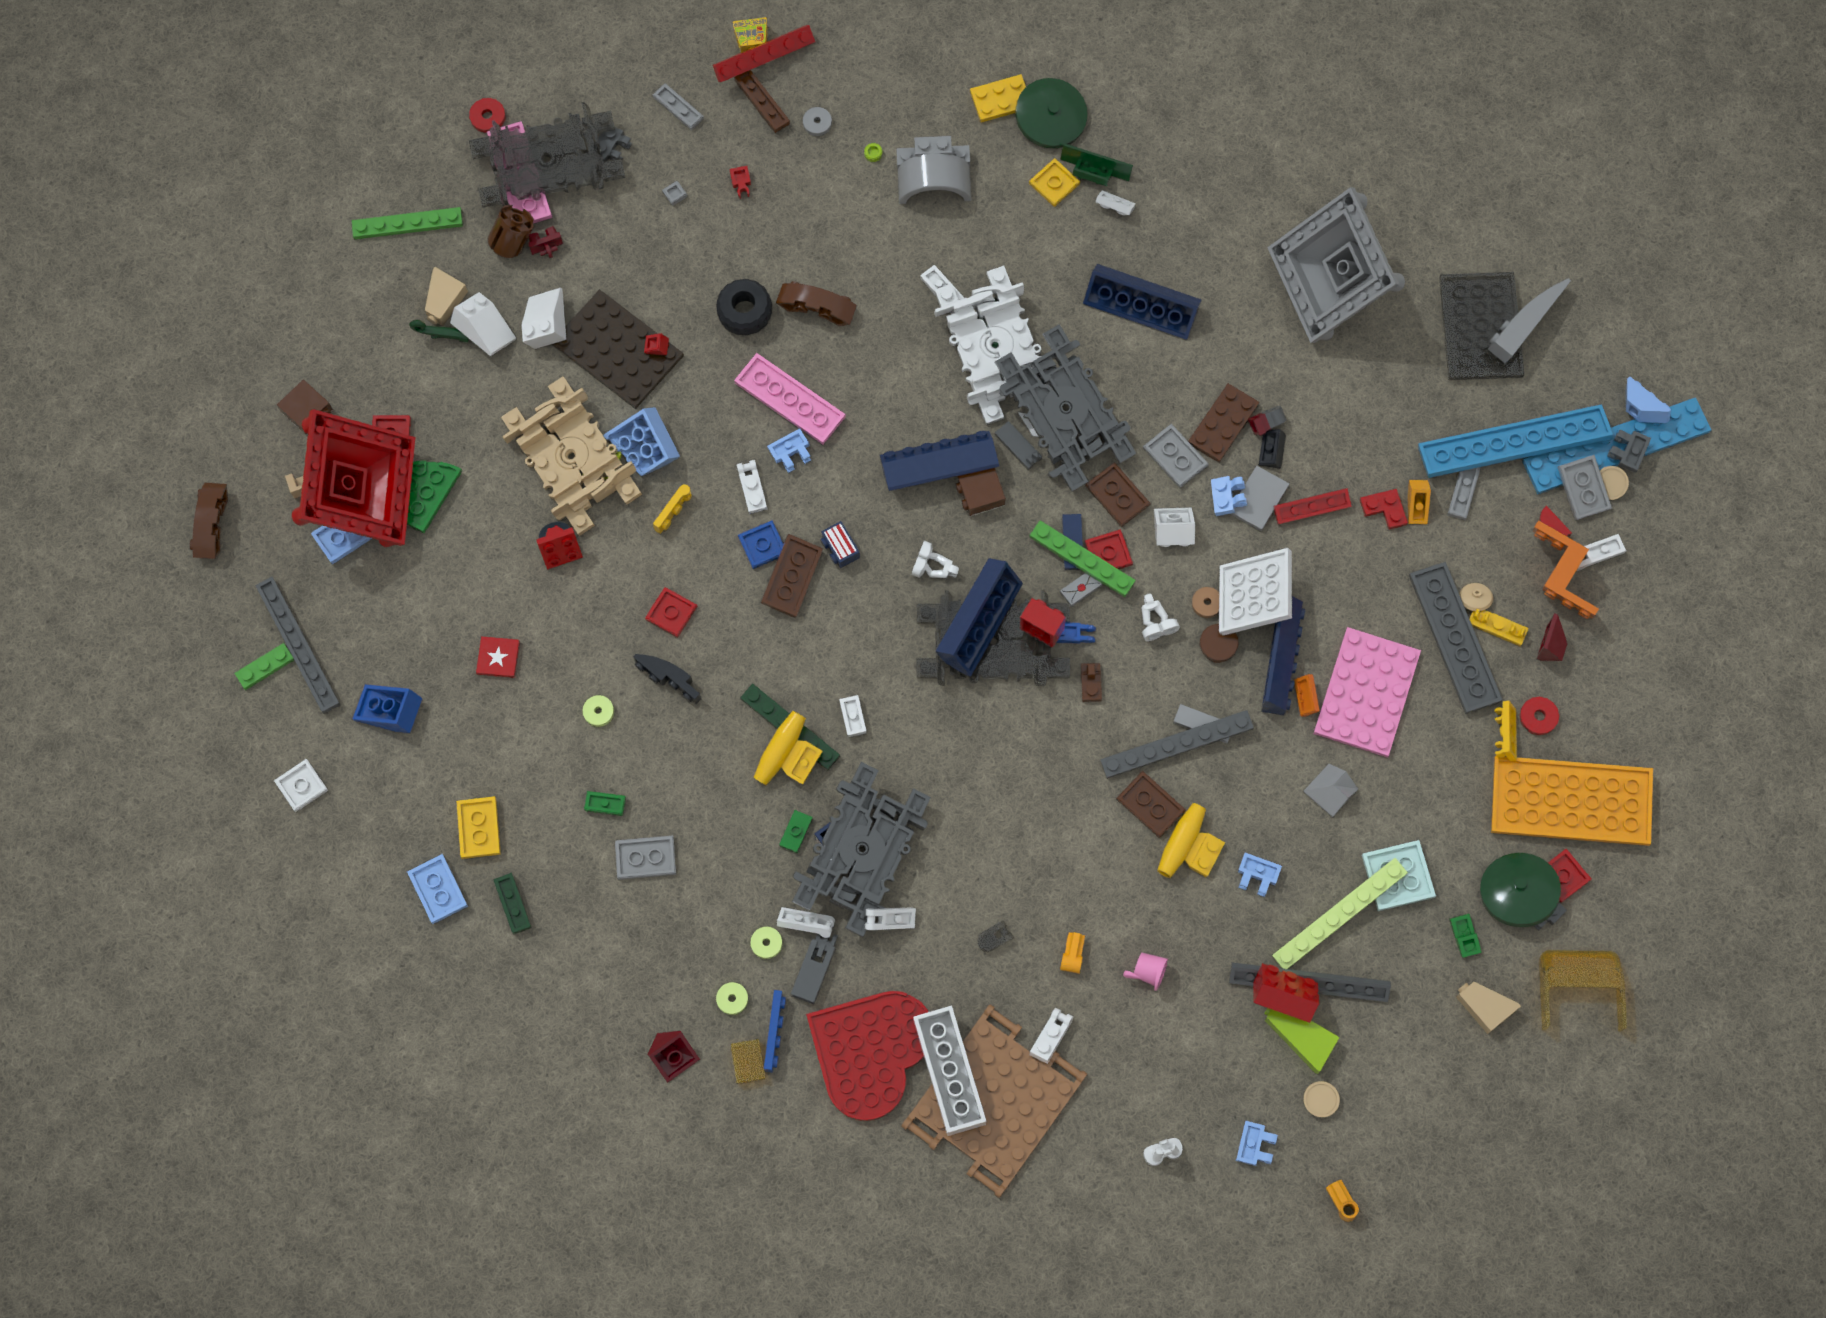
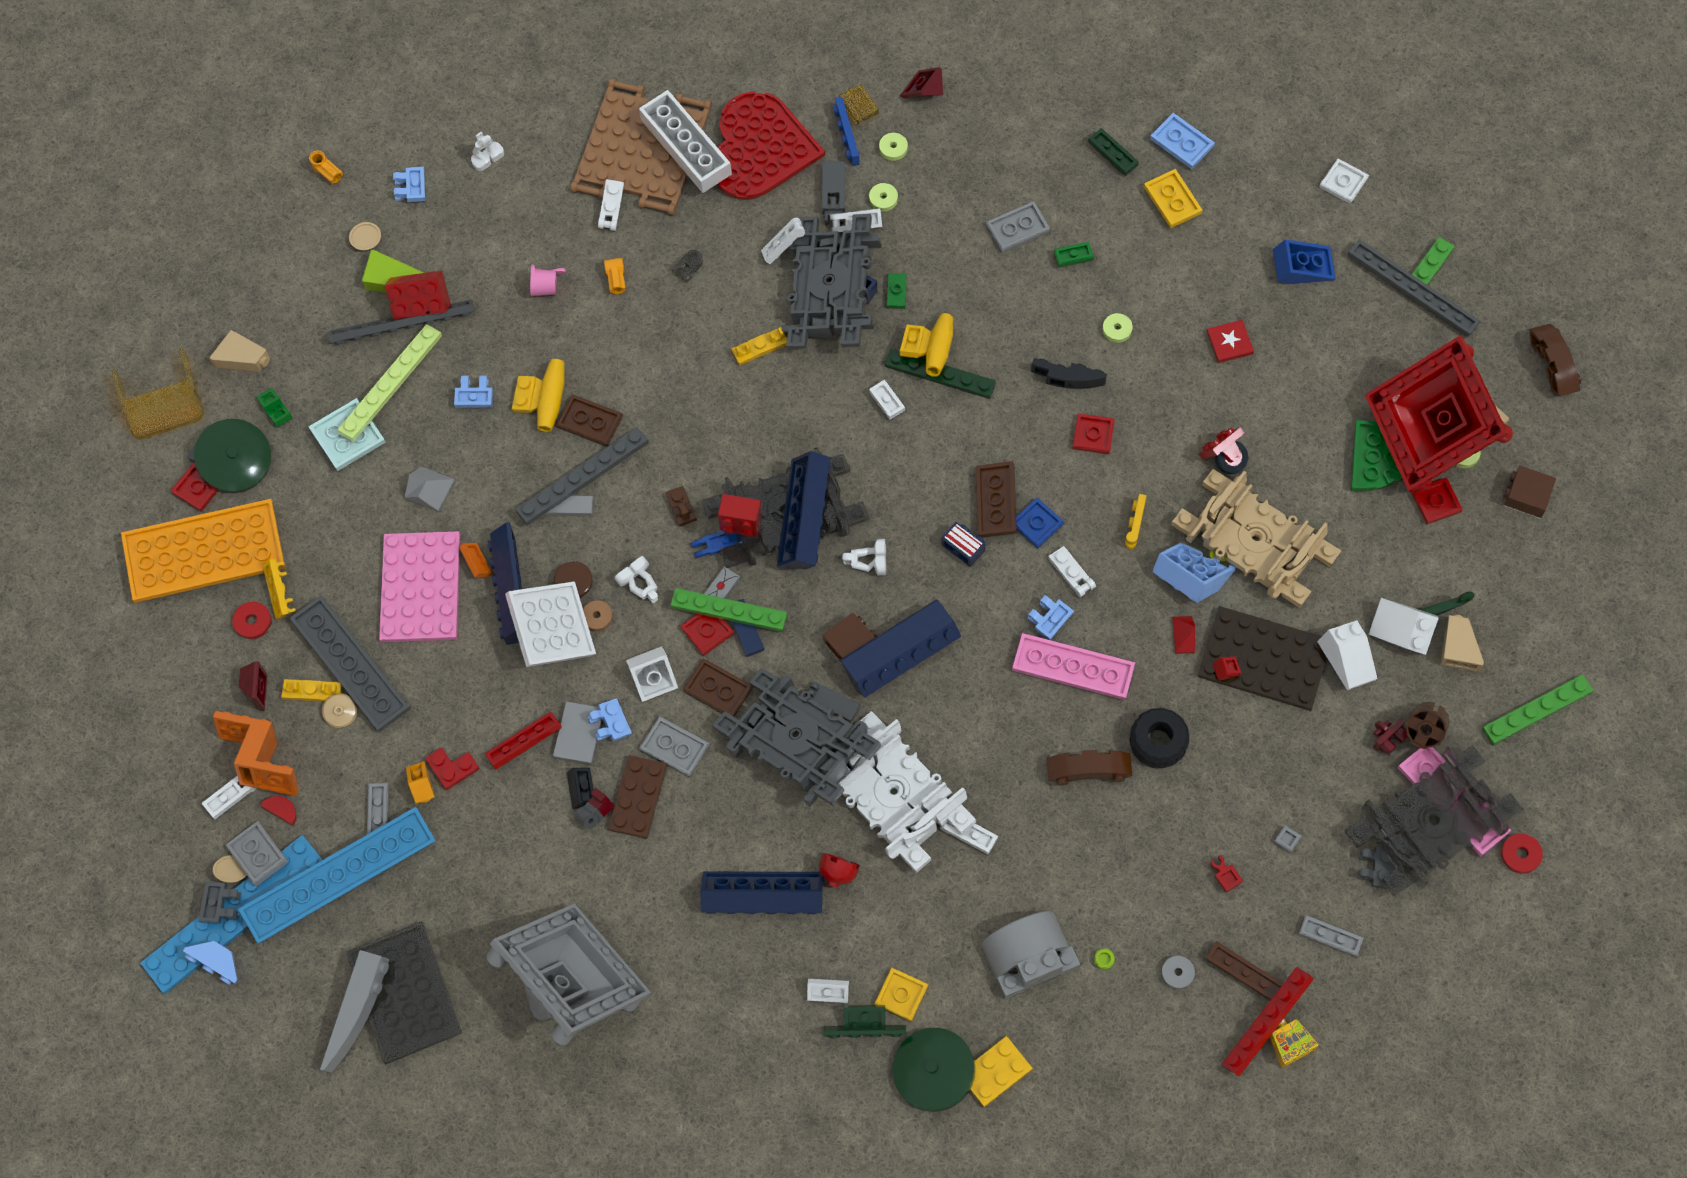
camera: 160 degrees right, 5 degrees down
(677, 395) = (1184, 634): none -> red slope
(954, 822) = (759, 346): none -> yellow plate
(1069, 294) = (837, 870): none -> red cylinder

